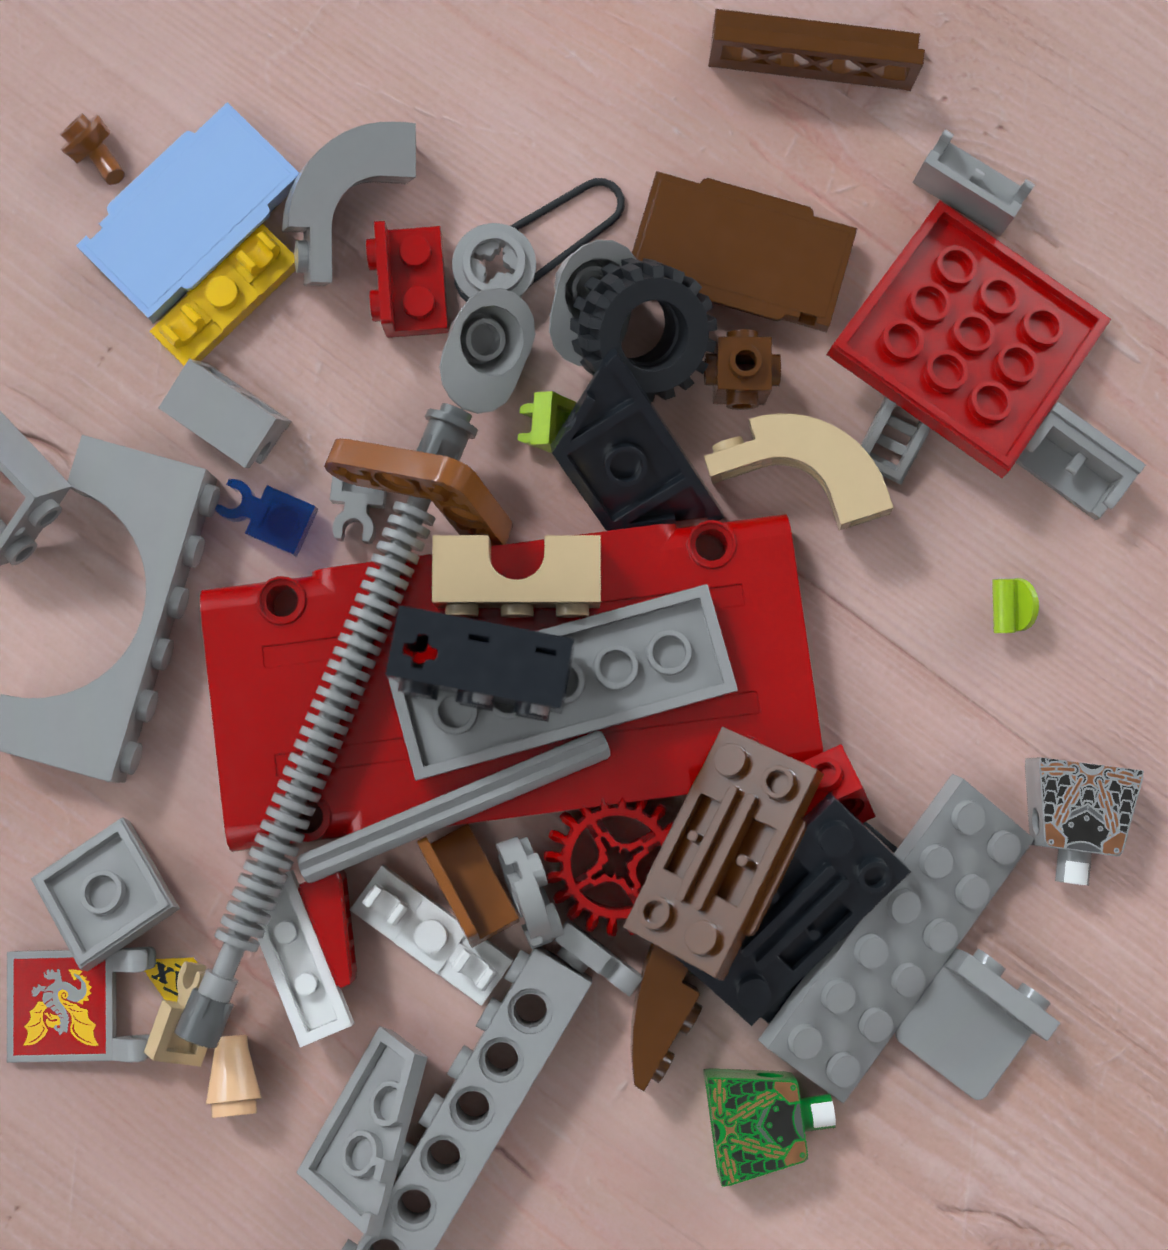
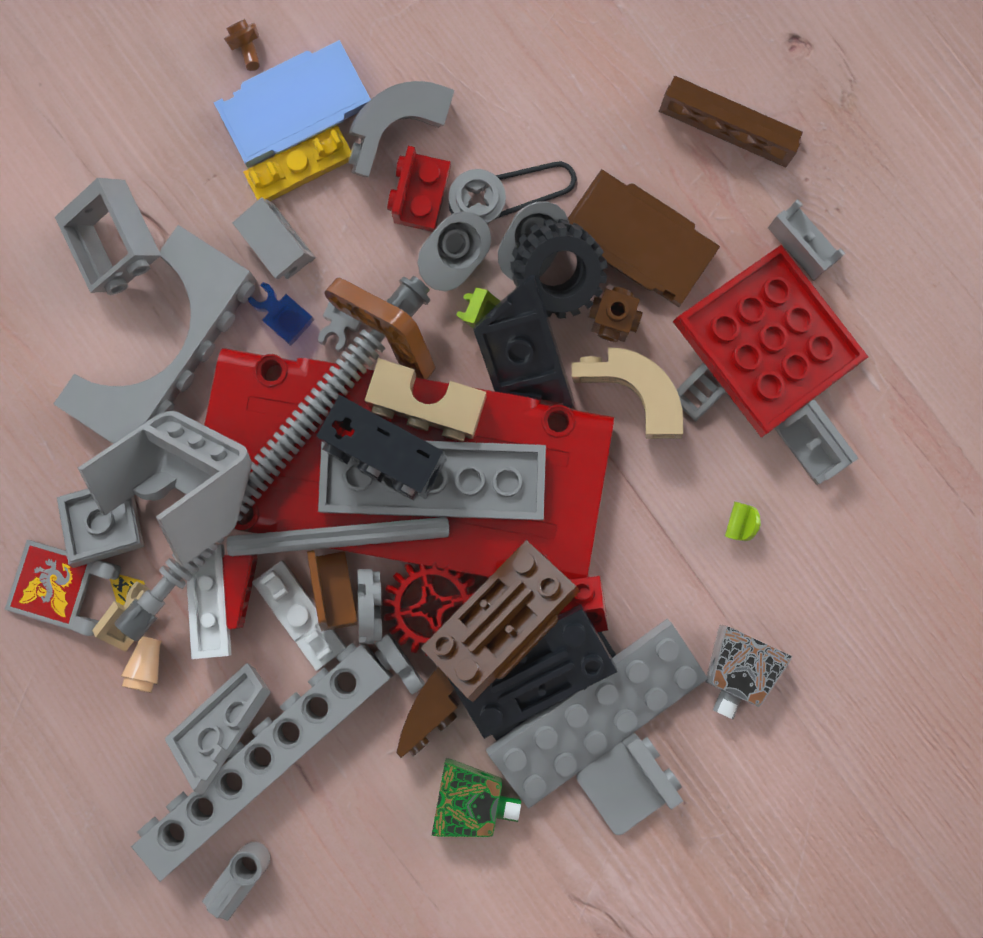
camera: 20 degrees right, 0 degrees up
(207, 762) = (180, 455): none -> light grey windscreen

